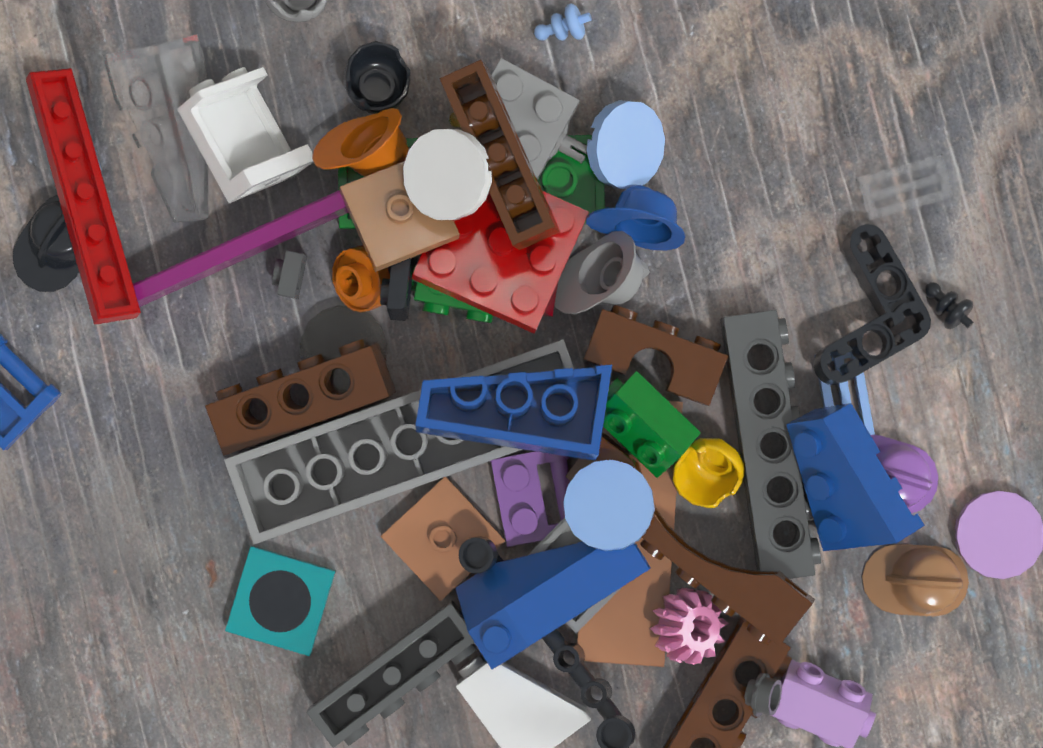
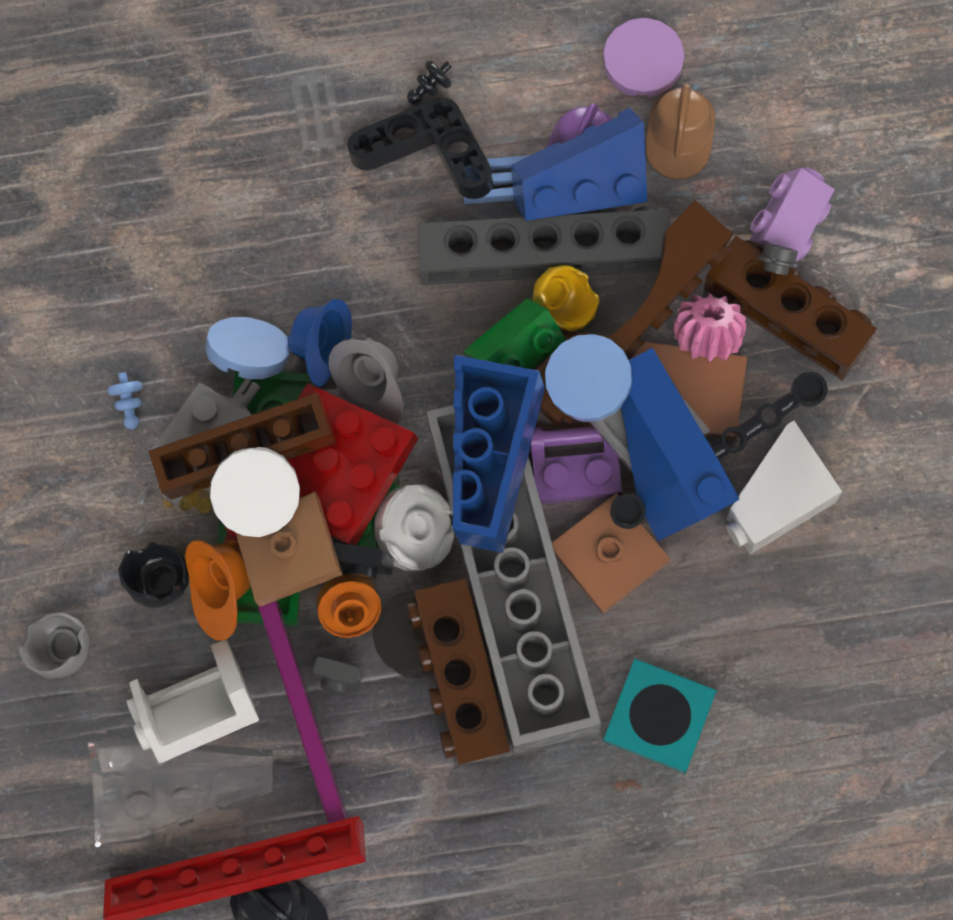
camera: 80 degrees left, 15 degrees down
(392, 674) = (739, 605): dark grey brick -> none
(447, 337) = (414, 527): none -> white tile
(694, 365) = (463, 307): reddish brown arch -> none

